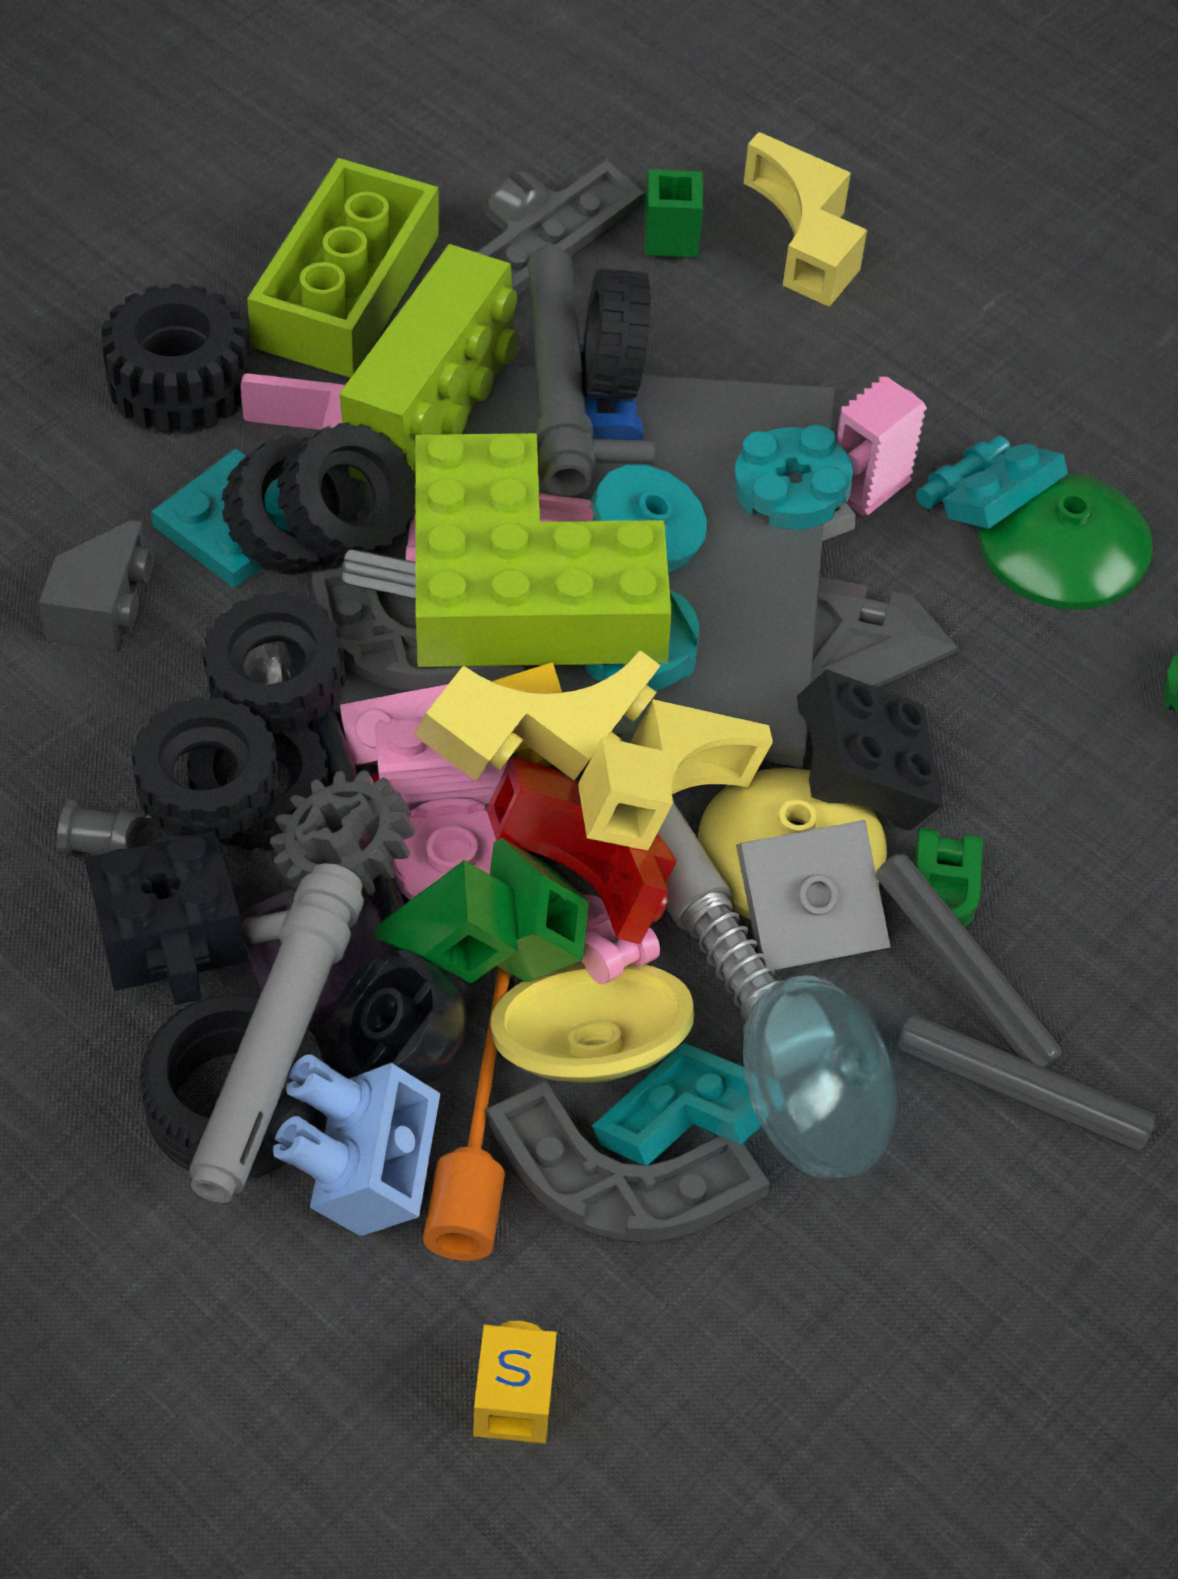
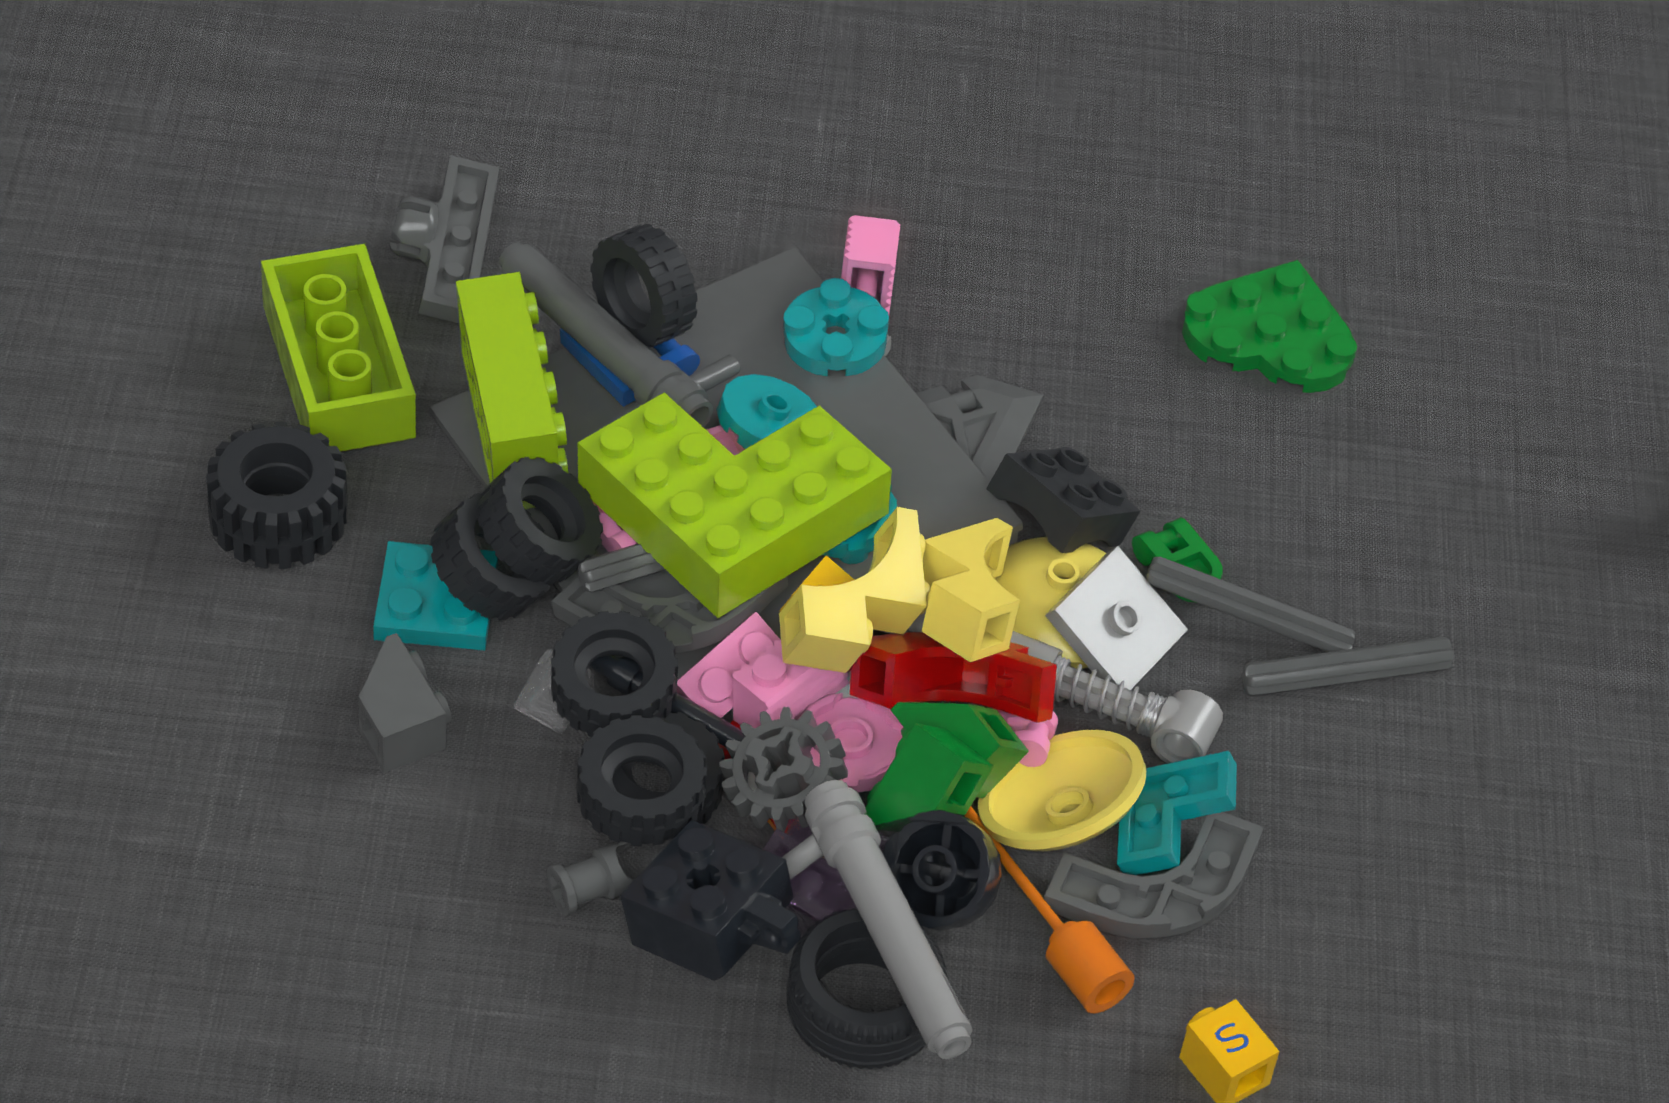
camera: 40 degrees left, 5 degrees down
(290, 401) = (416, 473): bright pink bracket -> none
(373, 1146) = (1001, 965): light blue brick -> none
(672, 212) = (539, 169): green slope -> none
(812, 198) = (624, 106): light yellow arch -> none
(820, 1077) = (1246, 731): clear light blue dish -> none
(992, 481) = (971, 259): teal plate -> none
(1071, 545) = (1034, 277): green dish -> none

